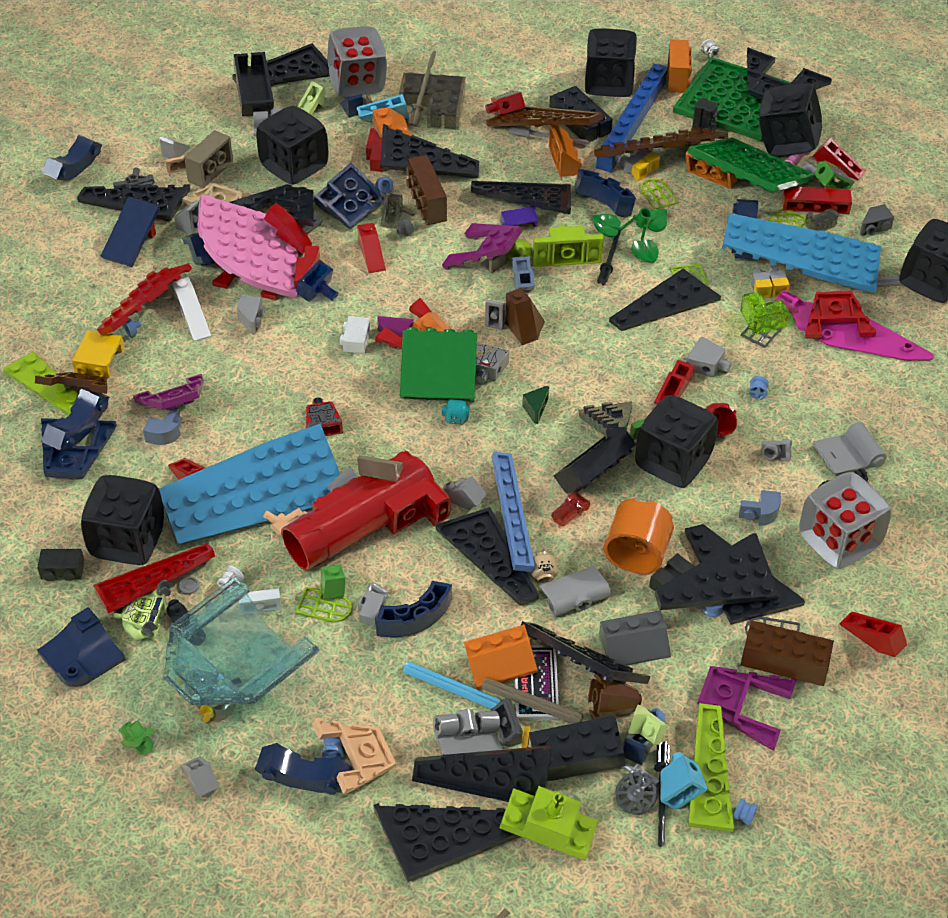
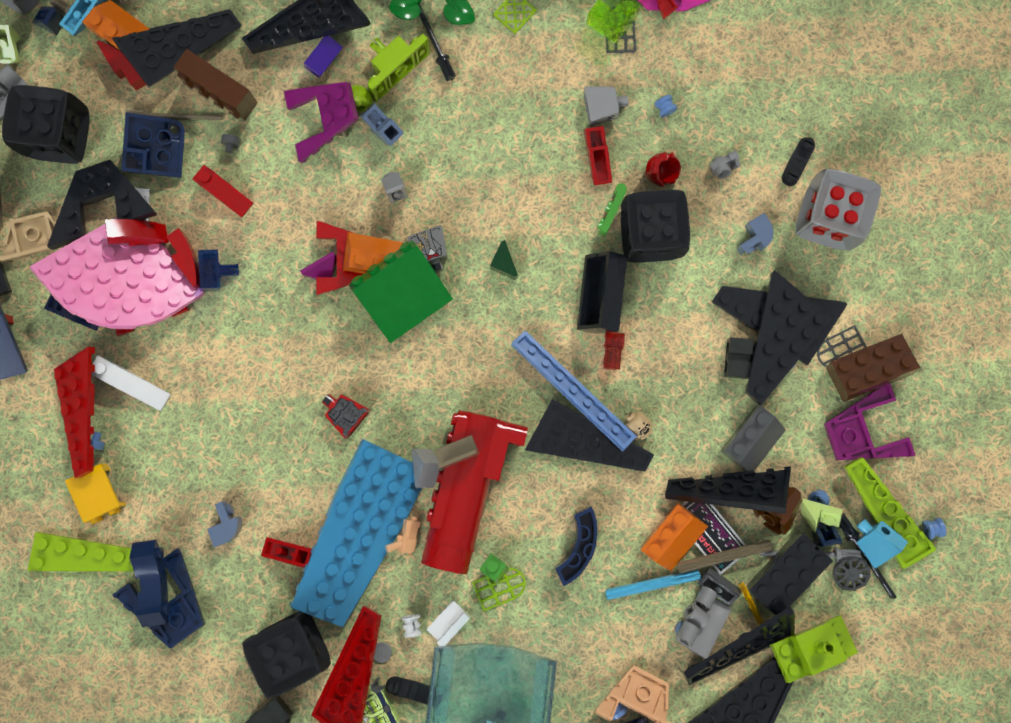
camera: 40 degrees left, 35 degrees up
(72, 379) = (108, 537): reddish brown wing -> none
(170, 398) = (209, 490): magenta wing -> none
(187, 218) = (27, 283): light grey slope -> none
(250, 311) = (182, 346): light grey slope -> none
(356, 334) = (294, 300): white brick -> none
(370, 603) = (539, 561): light grey piece -> none
(384, 184) = (168, 103): medium blue tile -> none
(392, 210) = (203, 132): clear smoke slope -> none
(455, 411) = (446, 321): teal head -> none
(465, 492) = (519, 401): light grey slope -> none
(523, 317) = (423, 176): reddish brown slope -> none
(575, 591) = (676, 427): light grey panel -> none
(609, 418) = (582, 242): wing -> none
(639, 536) = (696, 348): orange brick -> none
(668, 298) = (521, 51): black wing -> none
(851, 451) = (780, 121): light grey door -> none
(877, 633) = (916, 295): red slope -> none

